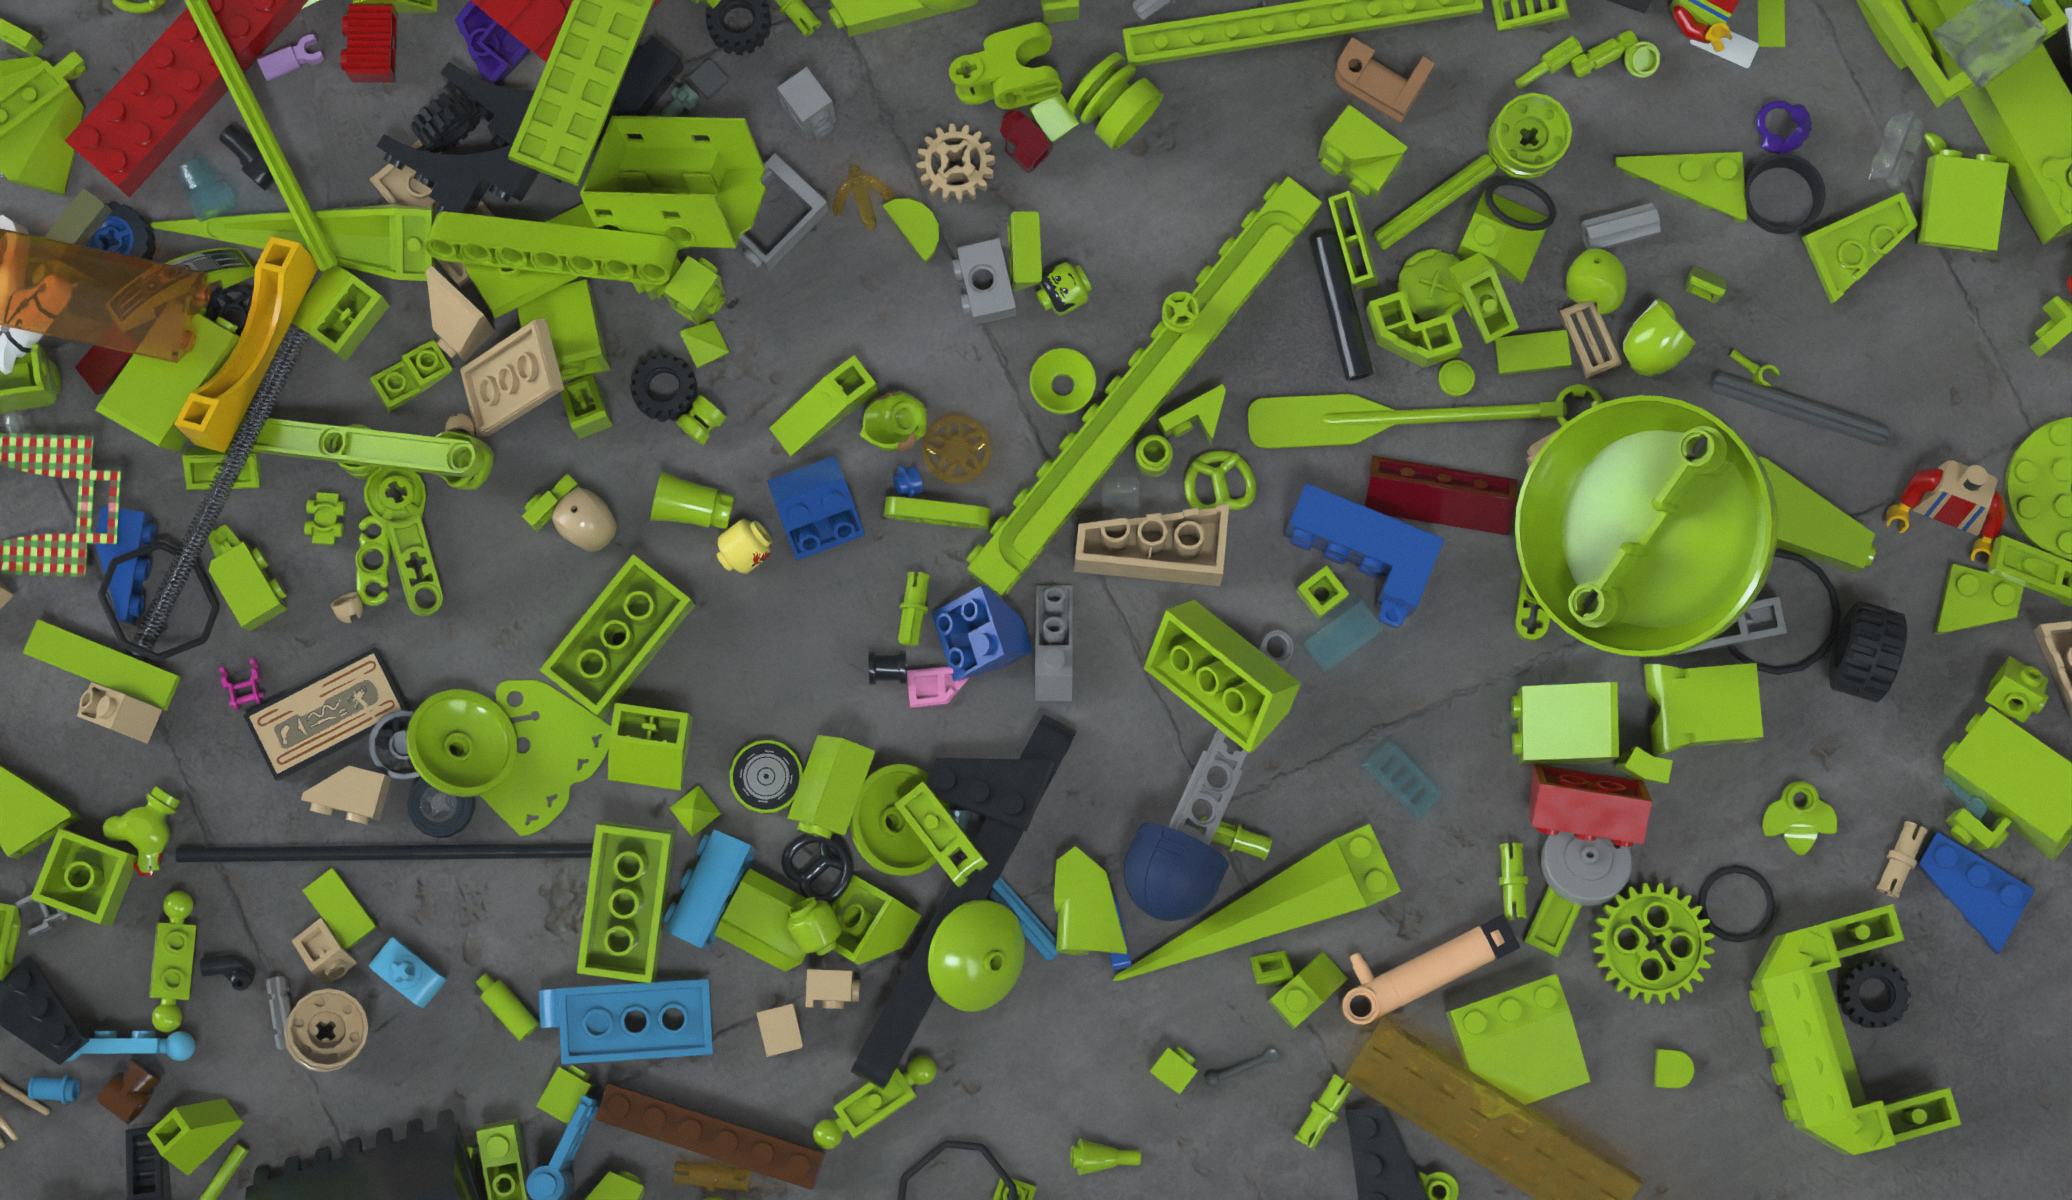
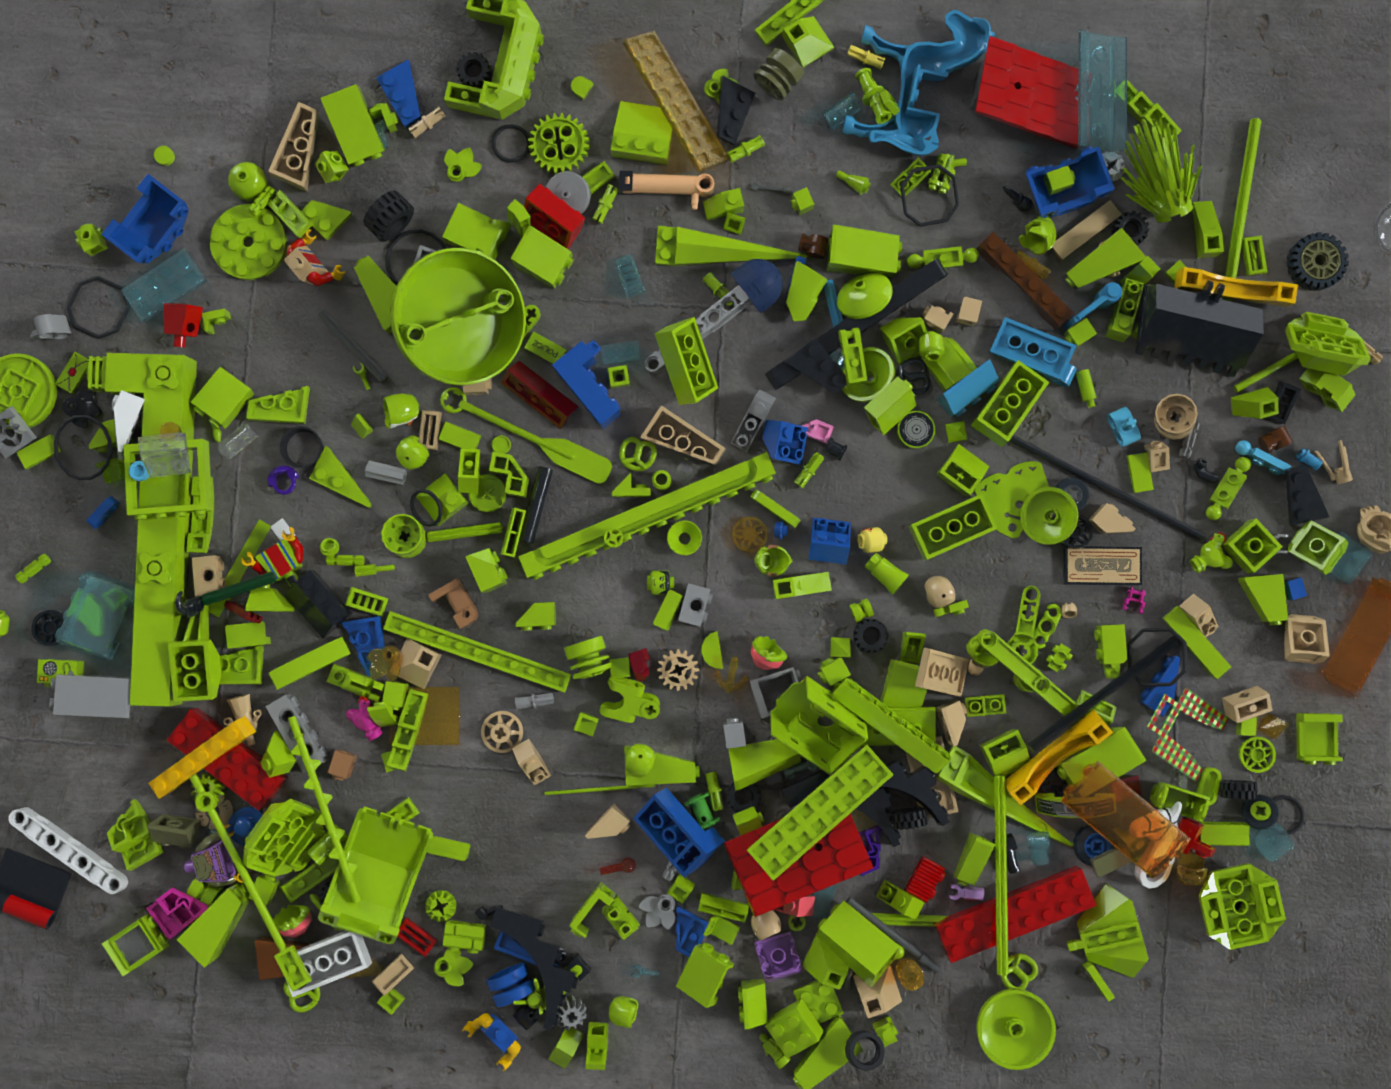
camera: 155 degrees left, 5 degrees up
(306, 114) = (973, 859): none -> lime slope
(744, 78) = (760, 761): none -> lime slope
(821, 266) = (767, 653): none -> lime hair
(1017, 1034) = (863, 251): none -> lime slope
(1113, 1001) = (814, 246): none -> reddish brown piece
(1232, 131) = (538, 615): none -> lime slope
(1473, 577) = (544, 348): none -> lime tile
(2008, 89) = (170, 427): none -> clear yellow tile

